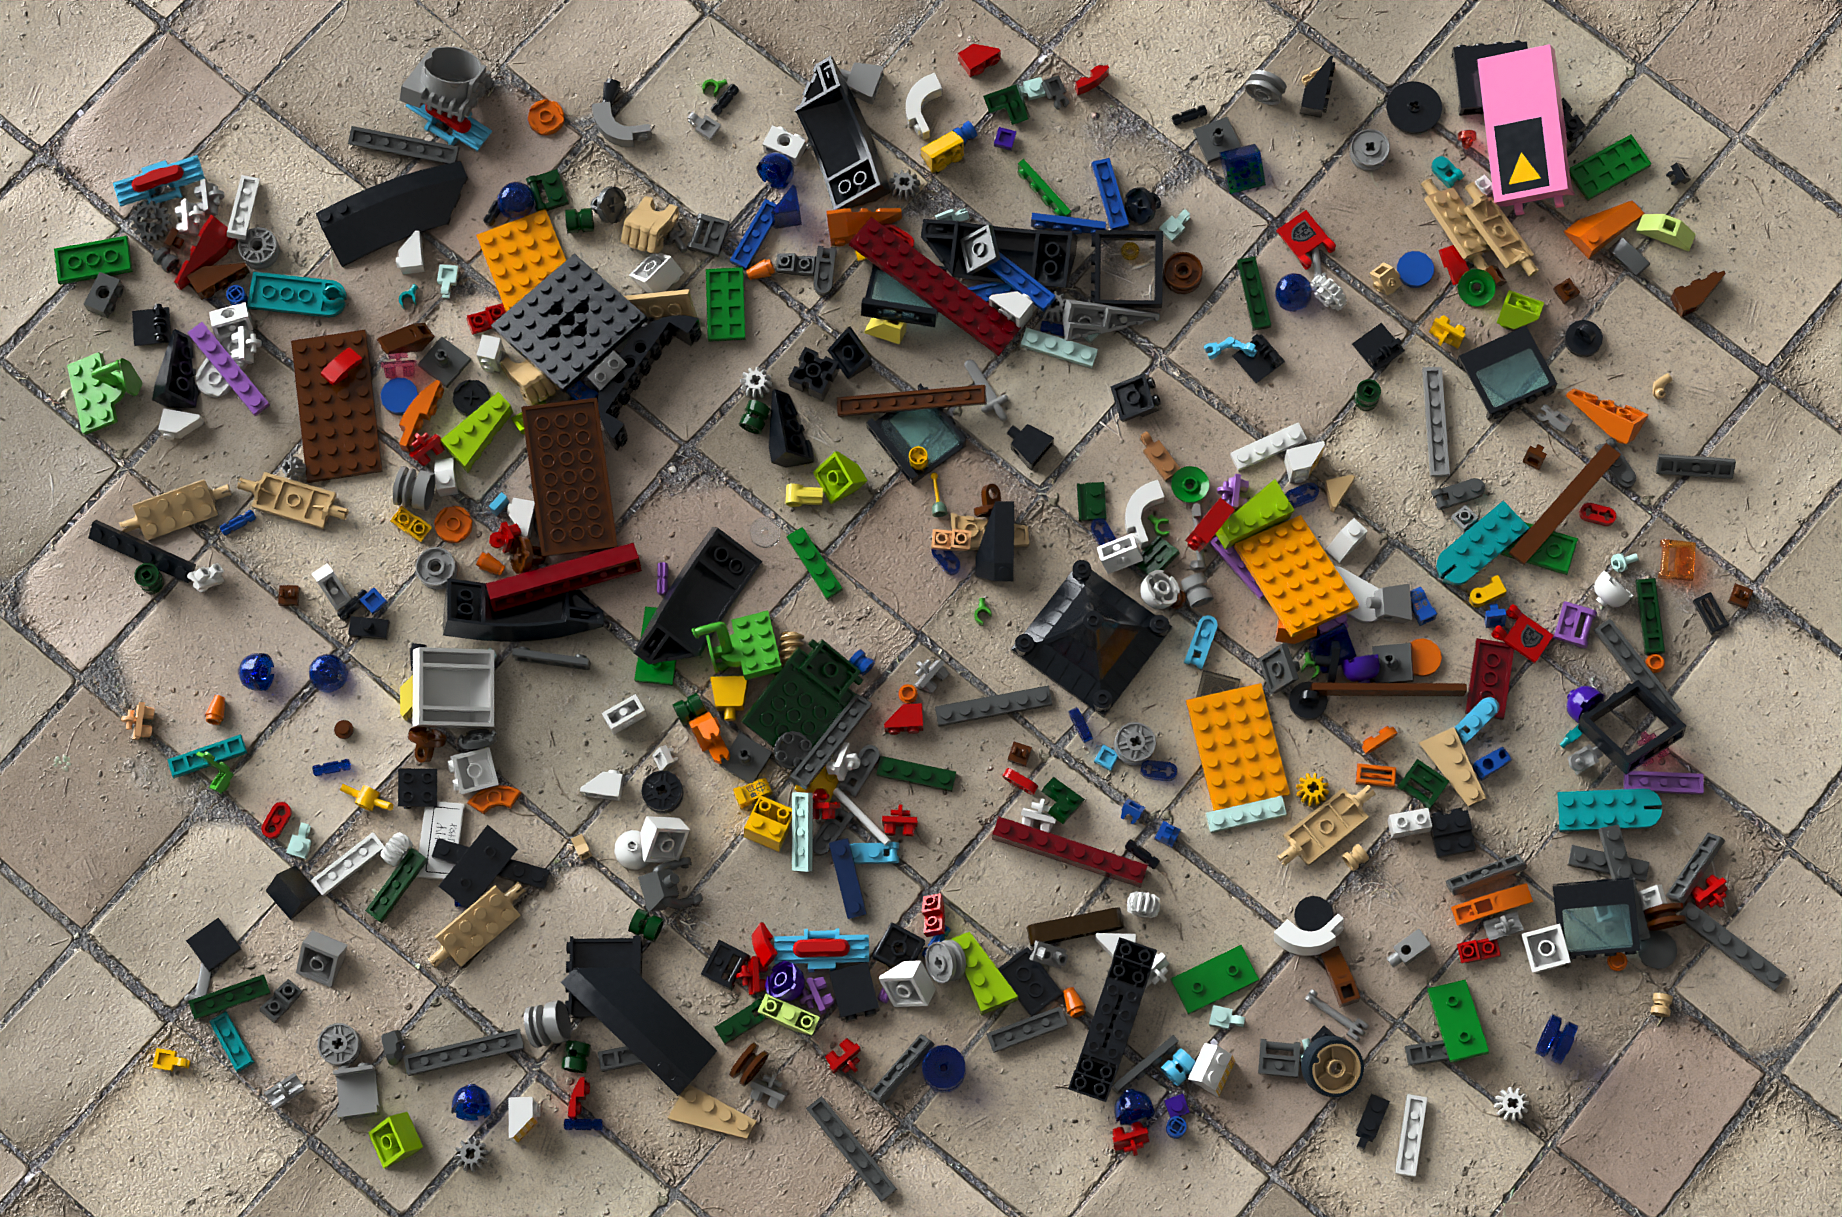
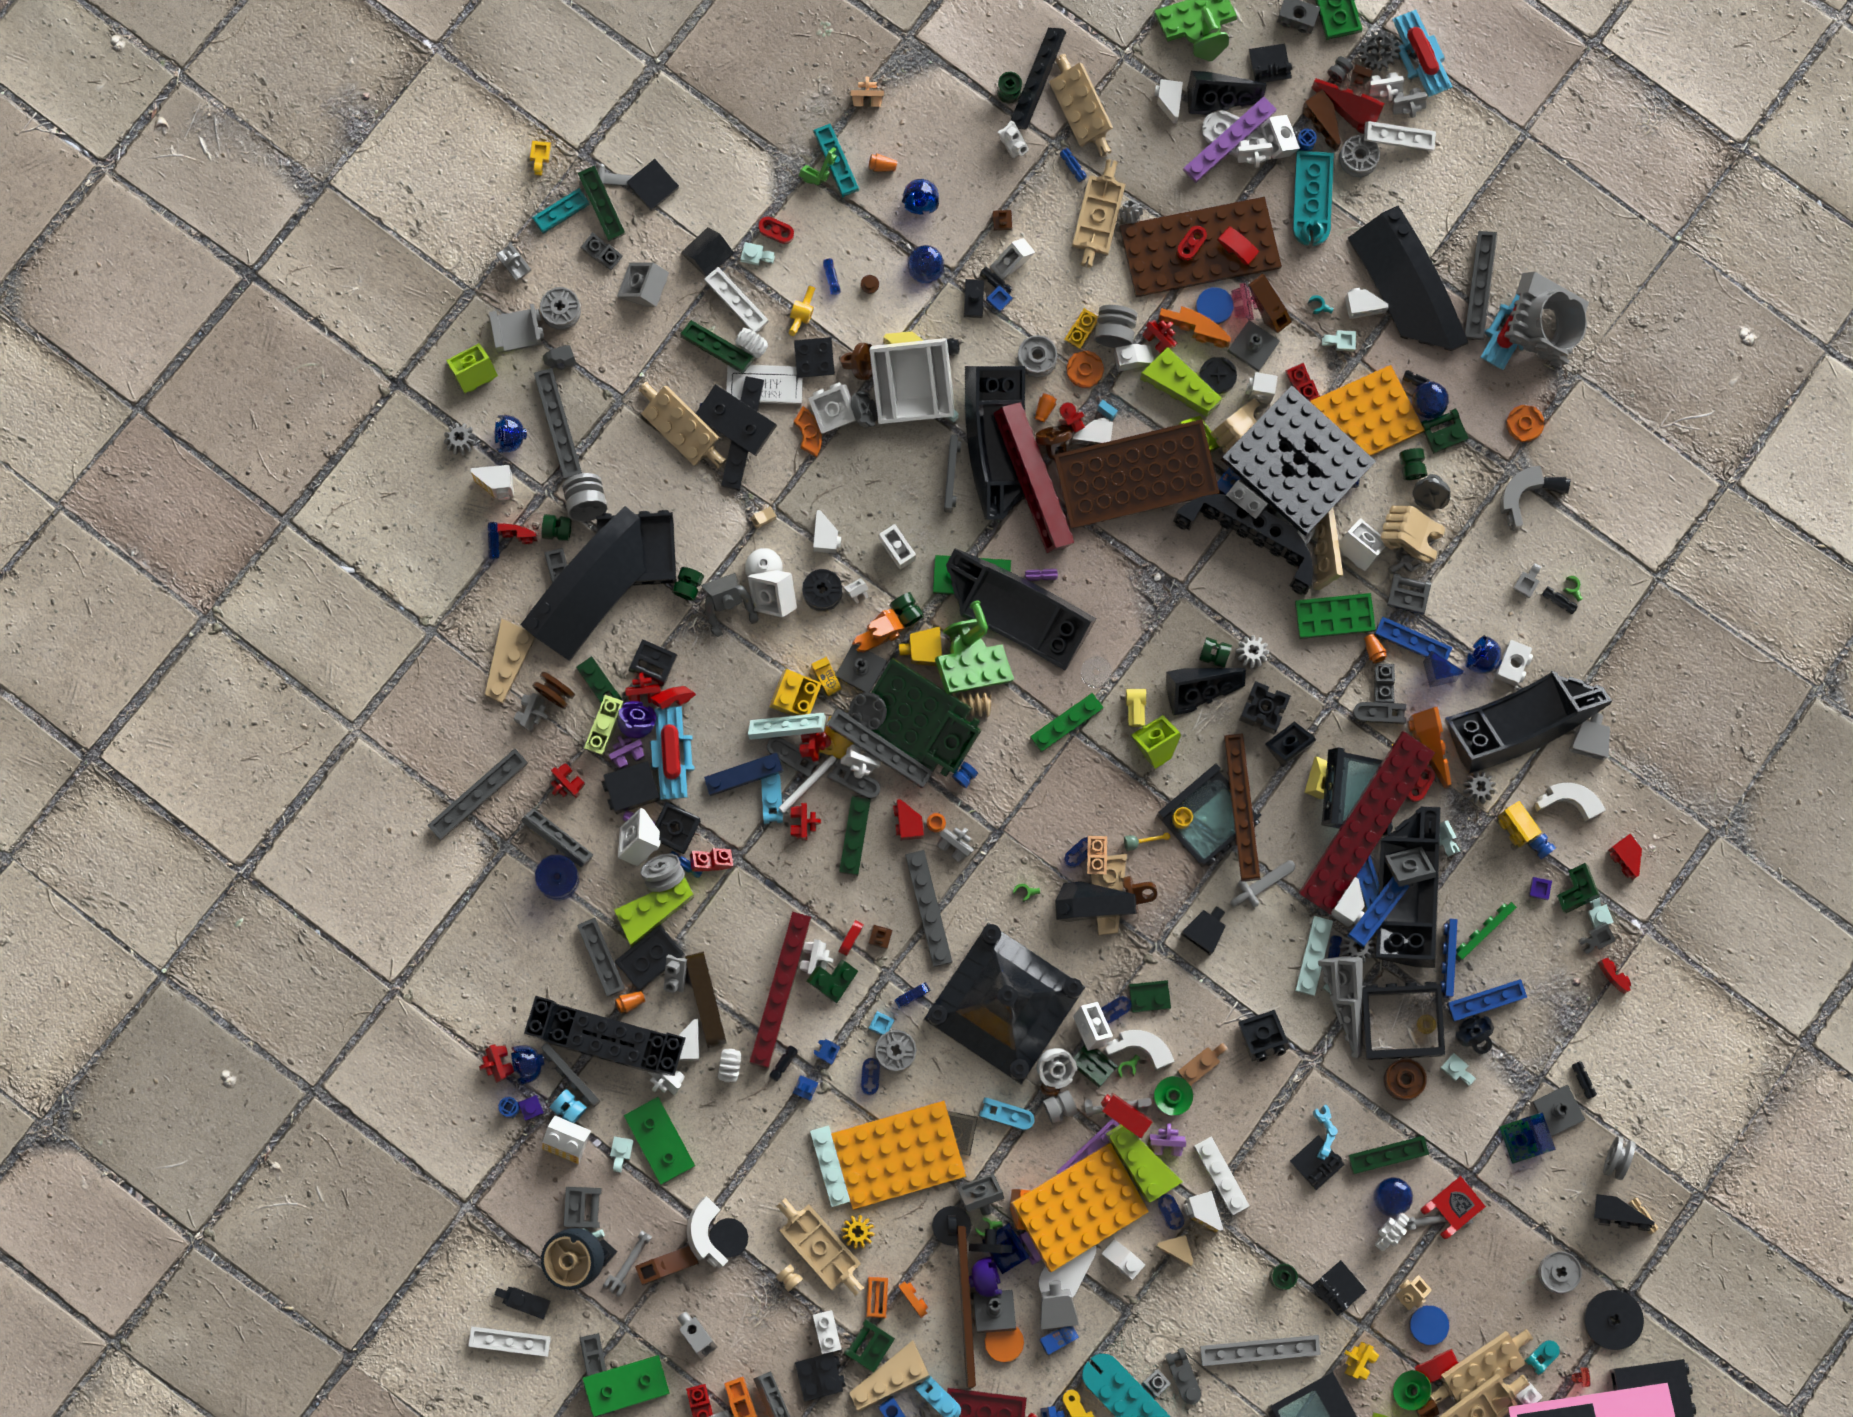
camera: 75 degrees right, 5 degrees up
(335, 410) = (1191, 243): none -> red plate

